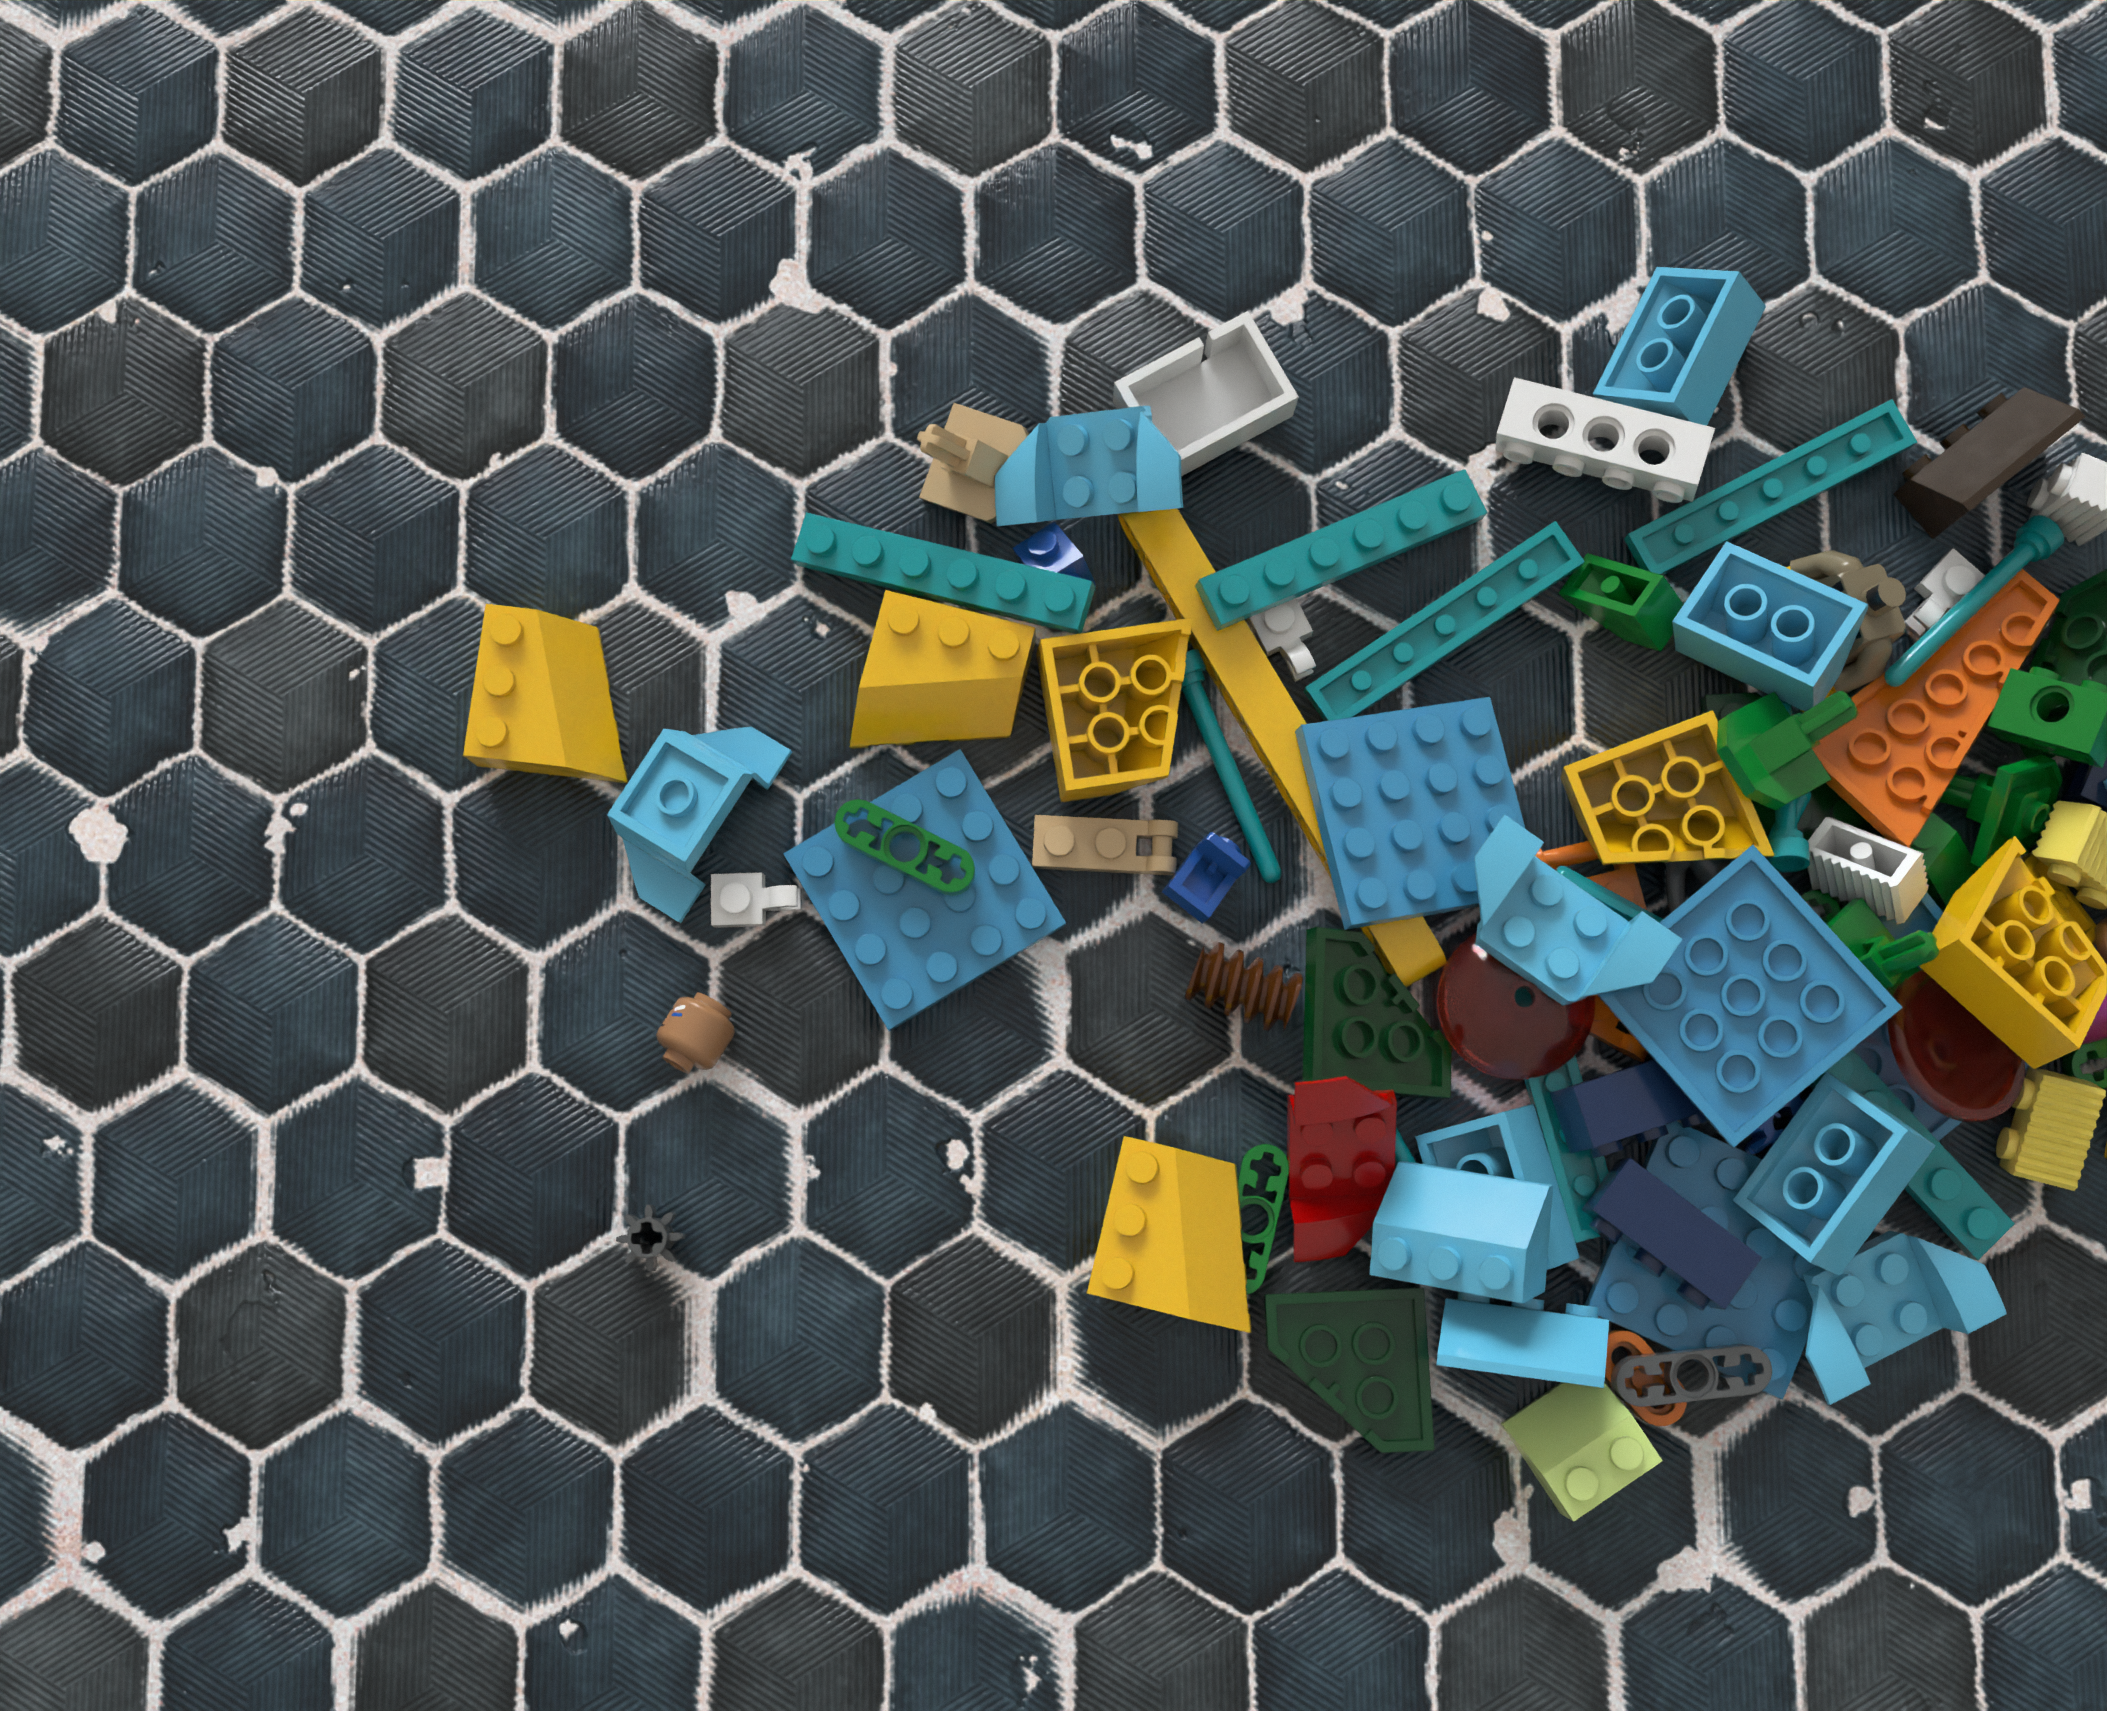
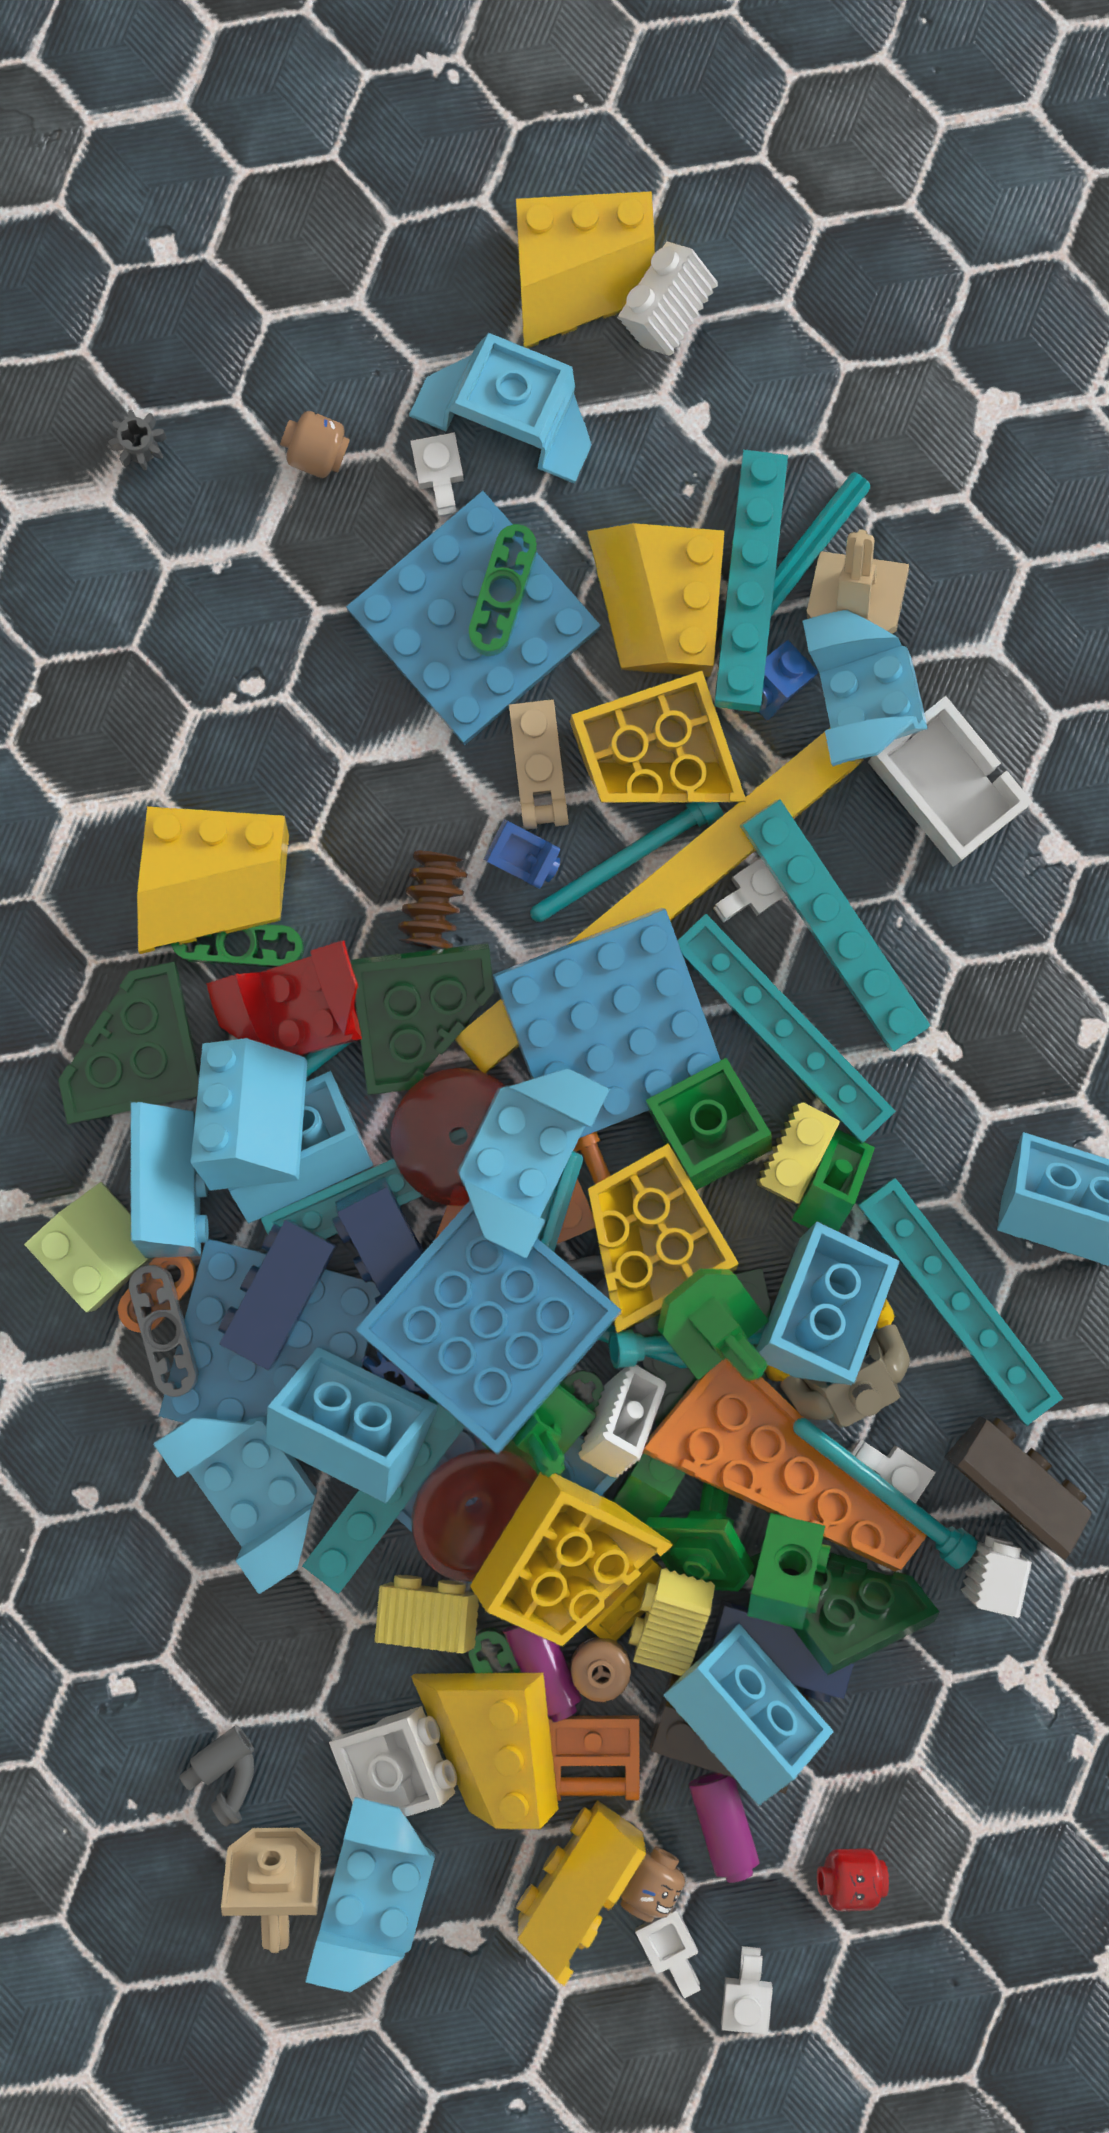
camera: 80 degrees right, 5 degrees up
(607, 610) = (667, 298): none -> white brick
(899, 493) = (817, 536): none -> teal axle
(1540, 720) = (710, 1123): none -> green slope
(1585, 418) = (995, 1074): white brick -> none
(1586, 634) = (798, 1153): none -> light yellow brick

